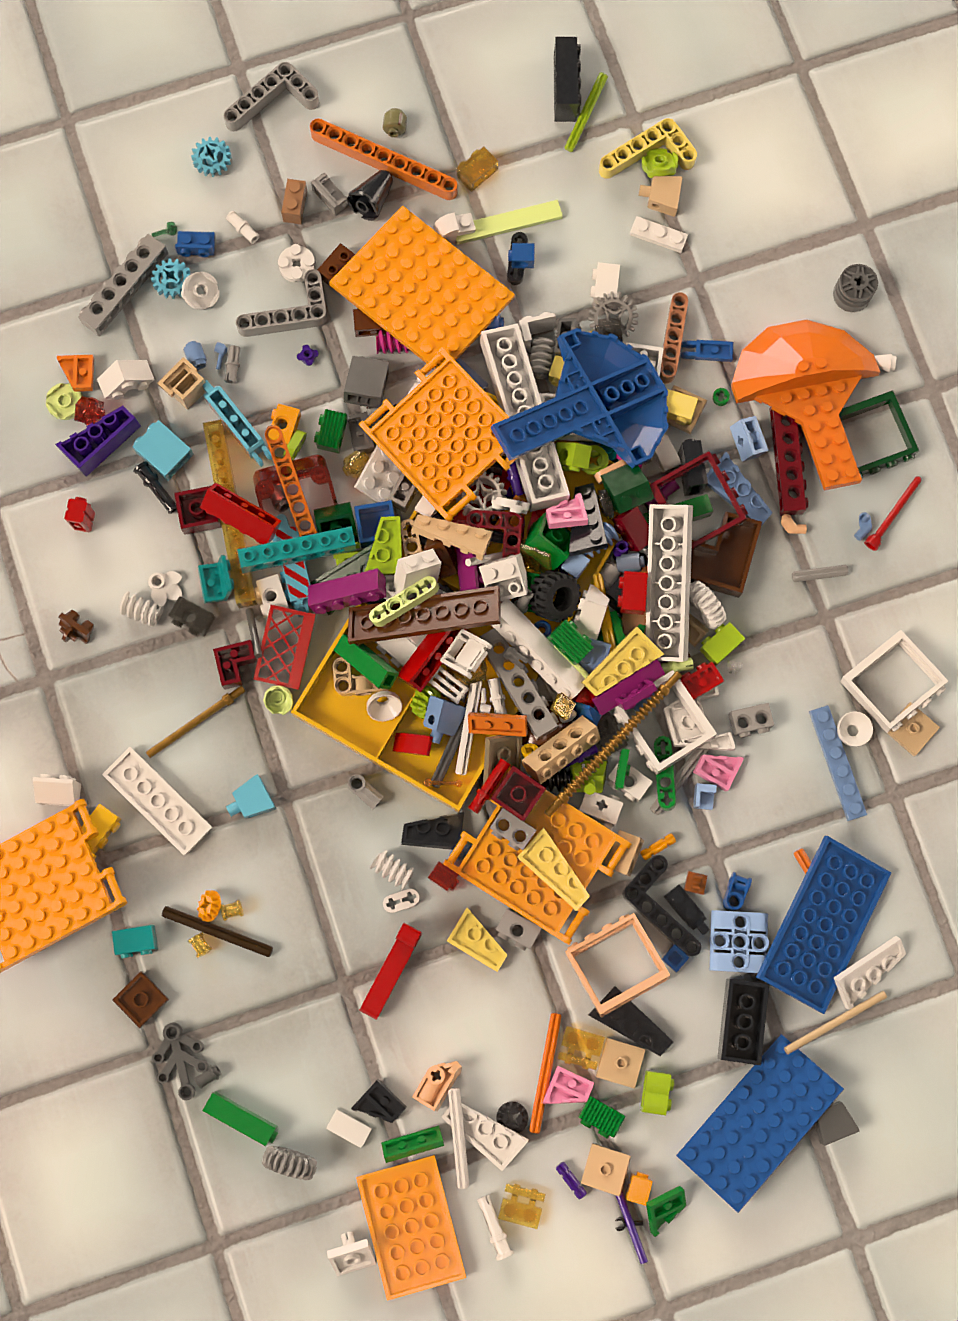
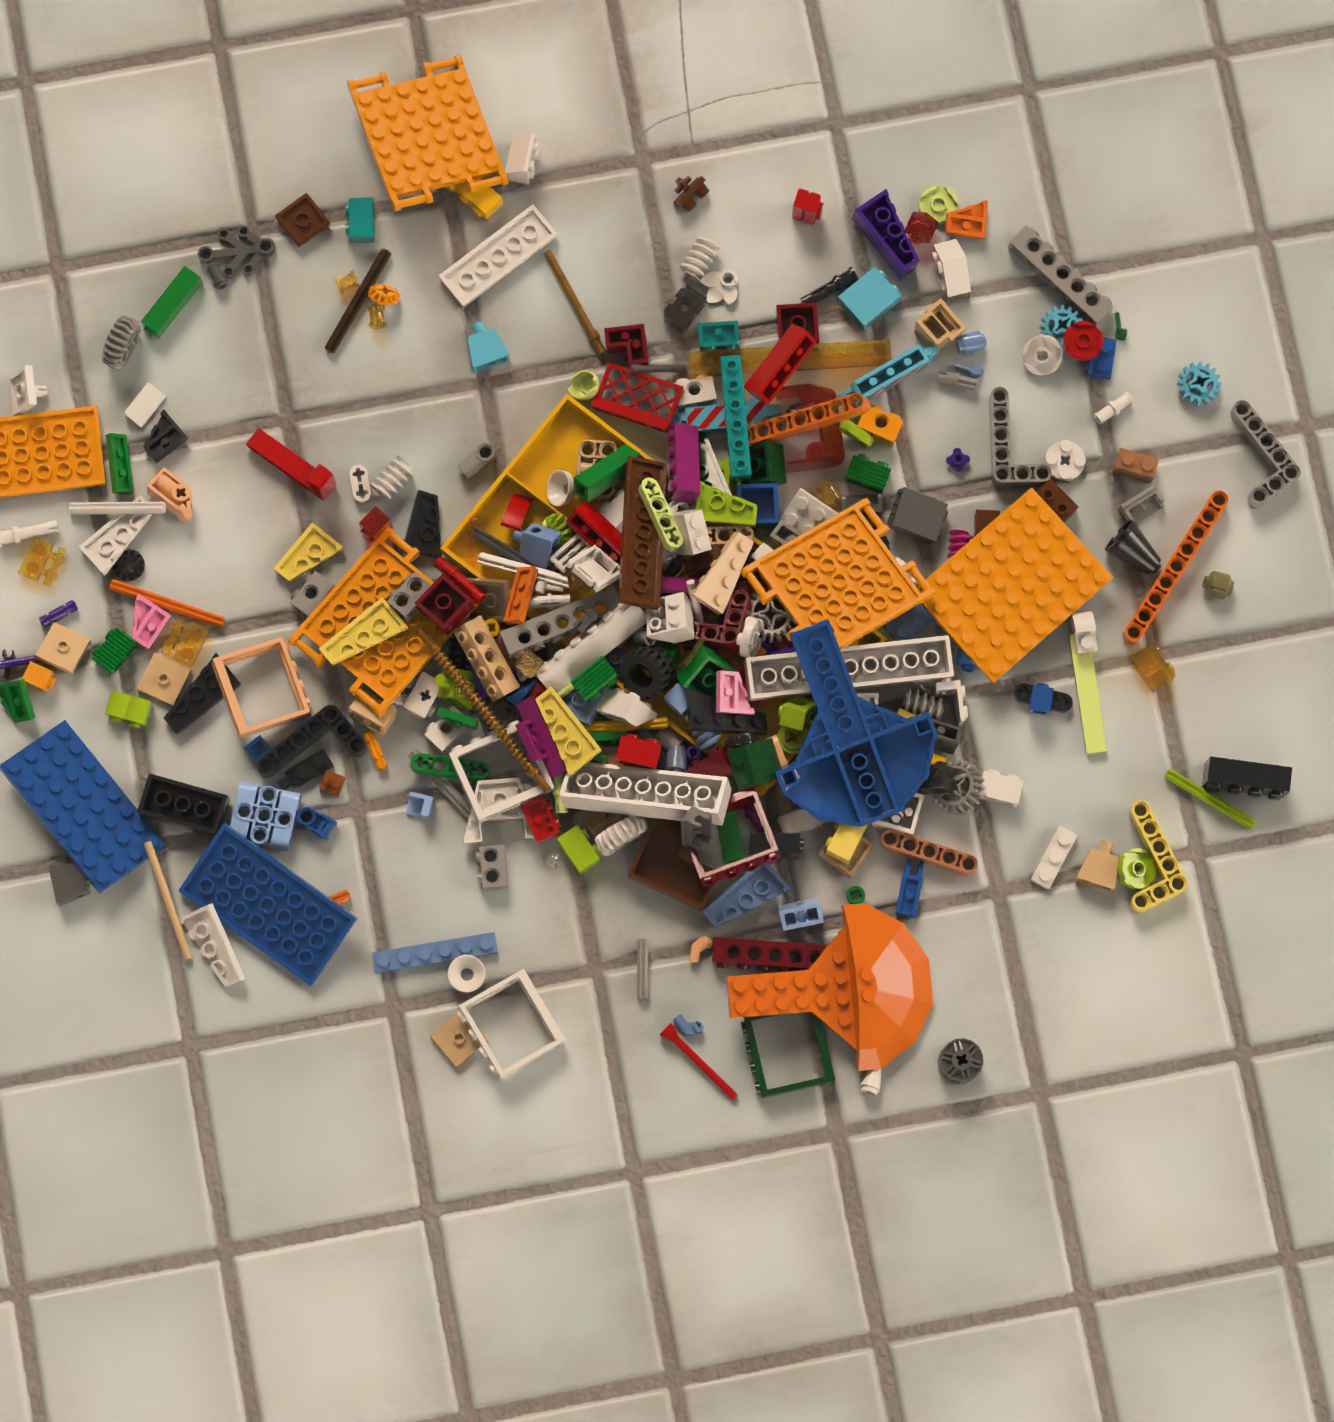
camera: 100 degrees right, 0 degrees up
(184, 254) = (1083, 341): none -> red tile
(698, 523) = (696, 826): none -> dark grey hinge
(718, 769) = (445, 824): bright pink wing -> none

